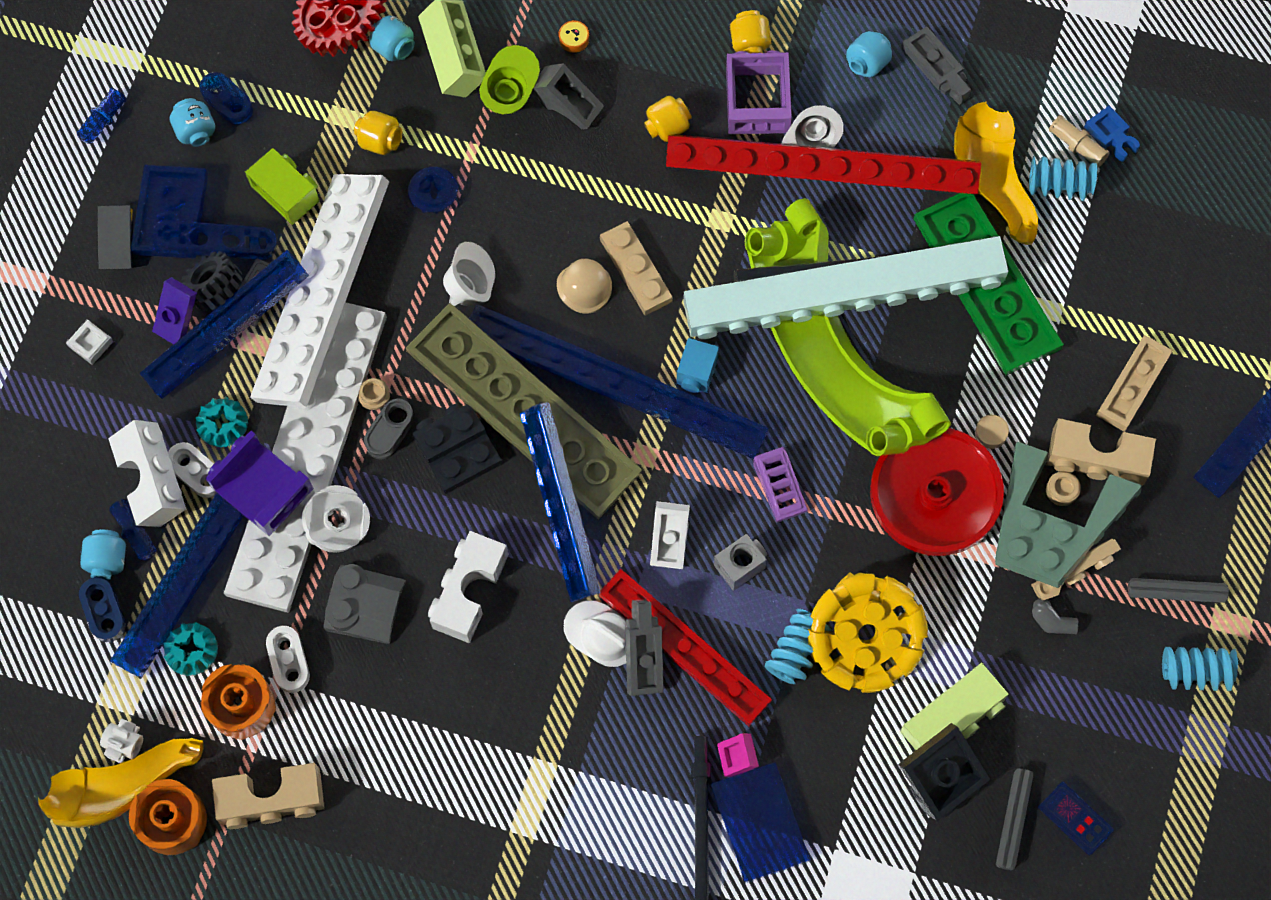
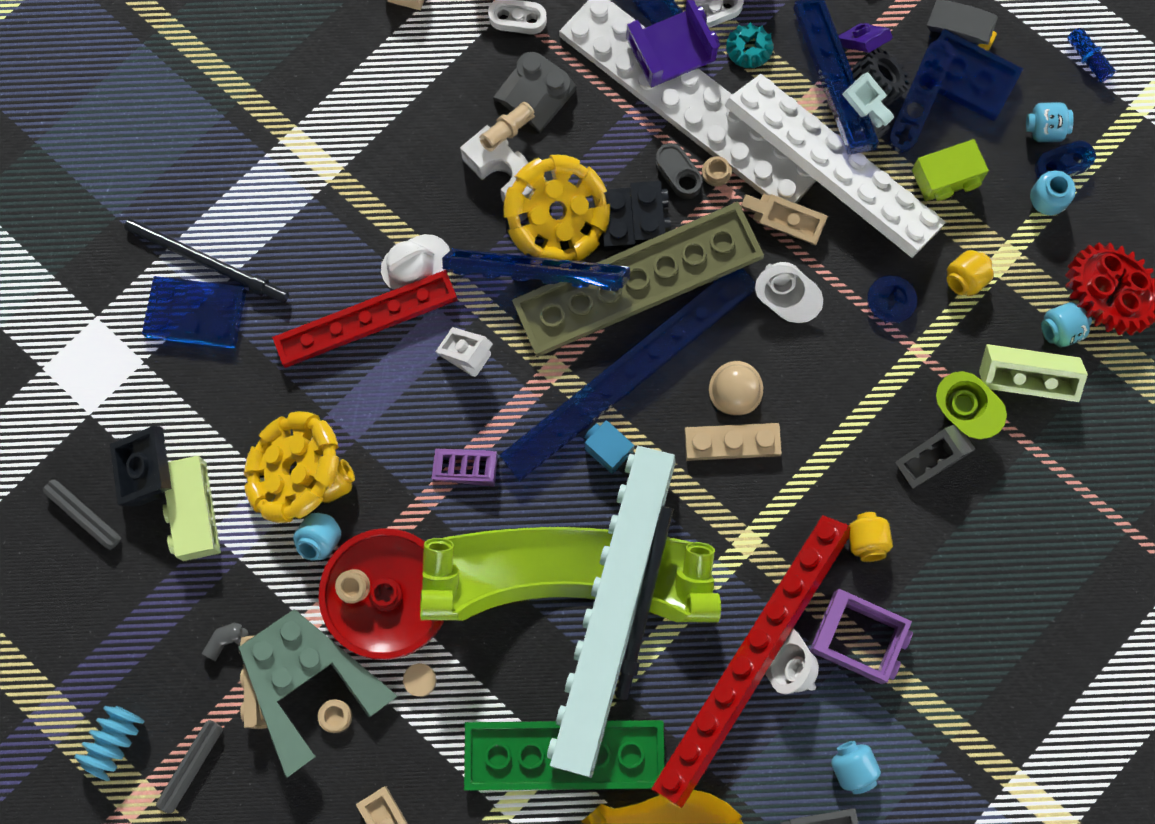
camera: 115 degrees right, 5 degrees up
(247, 275) = (866, 98): none -> light aqua plate
(266, 93) = (1052, 192): none -> medium azure head
(350, 507) = (608, 77): white plate -> none
(394, 310) = (786, 217): none -> tan hinge
(424, 597) = (507, 126): none -> tan pin
(483, 533) = (574, 204): none -> yellow plate
(574, 36) = (1001, 495): tile -> none
(643, 651) = (374, 279): dark grey hinge -> none
(735, 574) = (409, 385): light grey brick -> none
(737, 755) = (253, 317): dark pink plate -> none
(750, 32) = (928, 661): yellow head -> none
(793, 649) = (303, 398): medium azure piece -> none
(921, 576) = (317, 536): none -> medium azure head
(947, 516) = (352, 586): none -> tan tile
(1072, 451) = (323, 787): tan arch -> none
(1076, 818) = (53, 565): clear blue tile -> none

